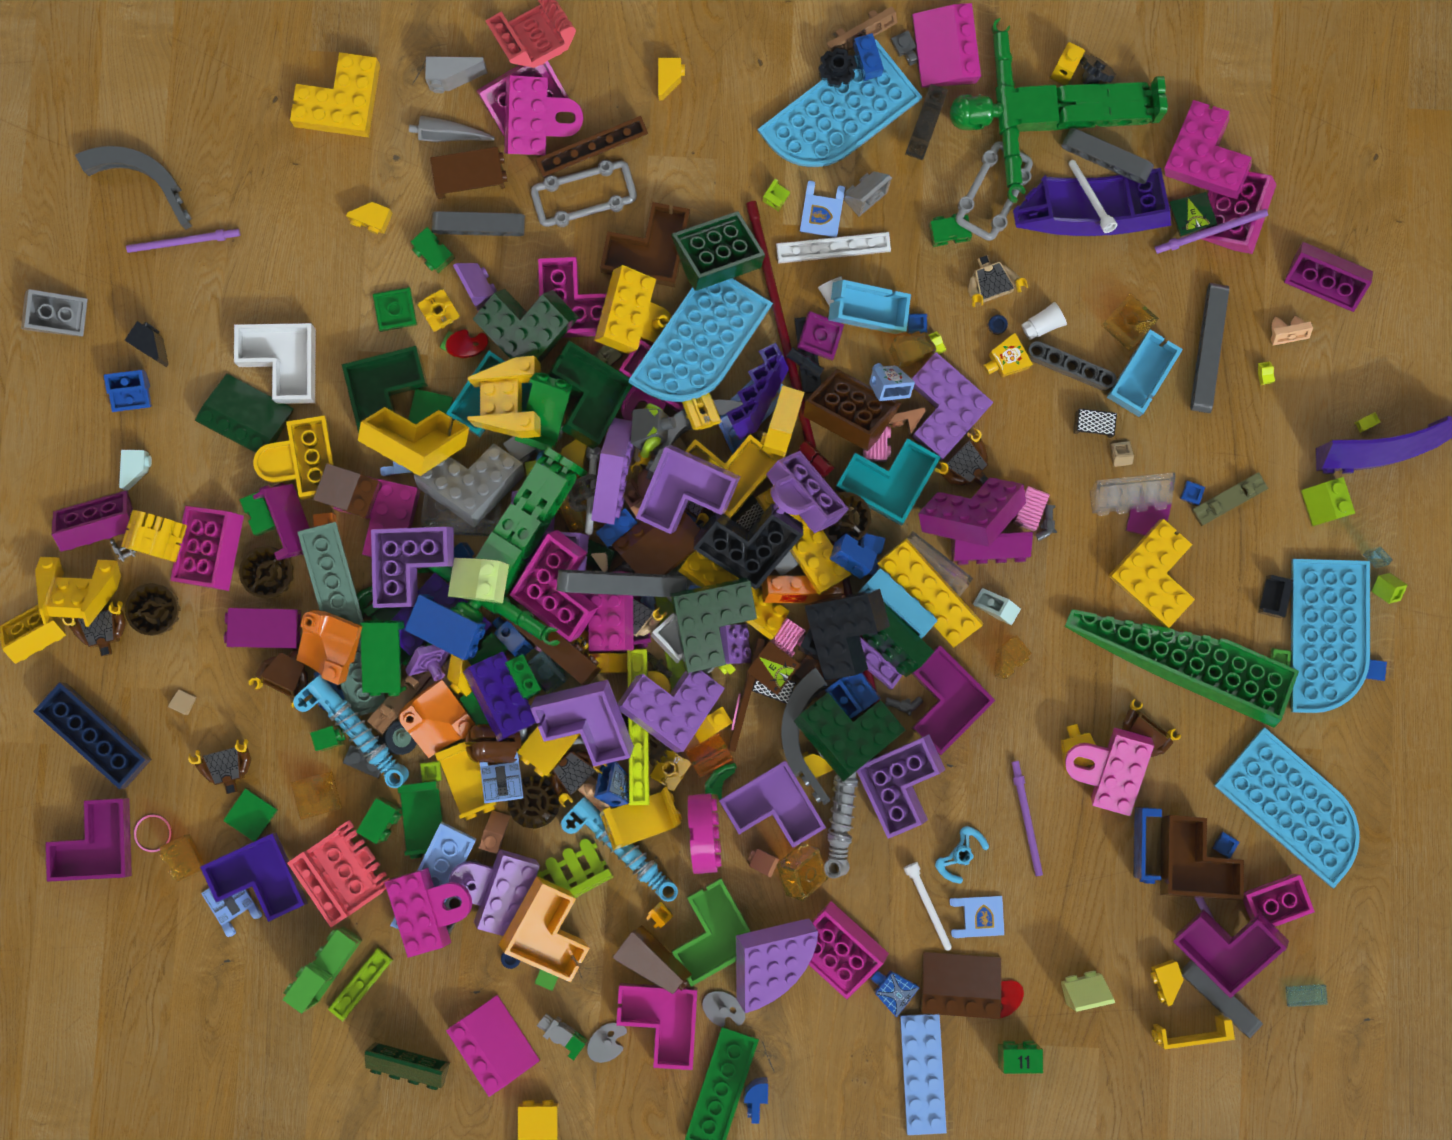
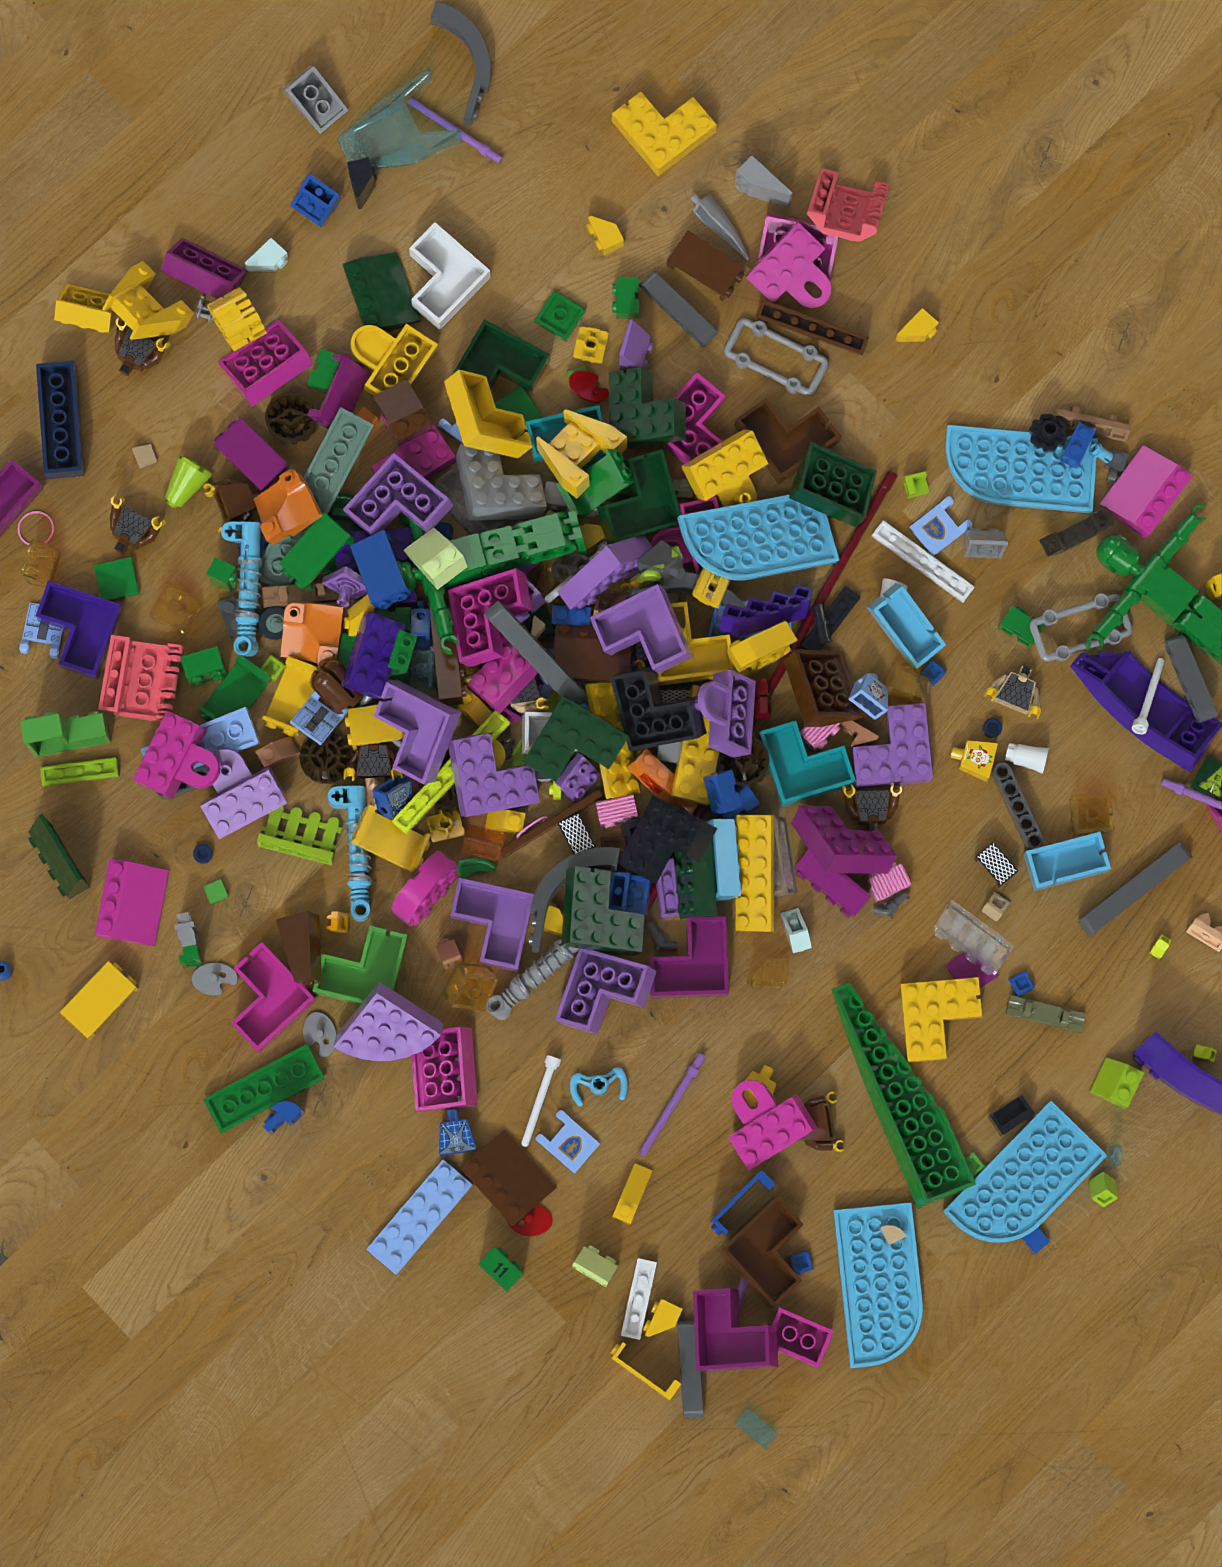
camera: 45 degrees right, 5 degrees down
(135, 288) = (390, 134): none -> clear light blue windscreen
(138, 608) = (179, 360): dark brown gear -> none
(232, 693) = (185, 481): none -> lime cone
(536, 932) = (239, 846): light orange piece -> none
(773, 668) = (588, 820): reddish brown tile -> none
(820, 336) = (851, 615): magenta tile -> none
(885, 47) = (1098, 451): none -> medium azure pin
(937, 340) = (932, 699): neon yellow piece -> none
(1061, 911) = (632, 1194): none -> yellow slope
(1136, 982) = (638, 1299): none -> white plate
(1273, 763) = (892, 1233): none -> tan tile

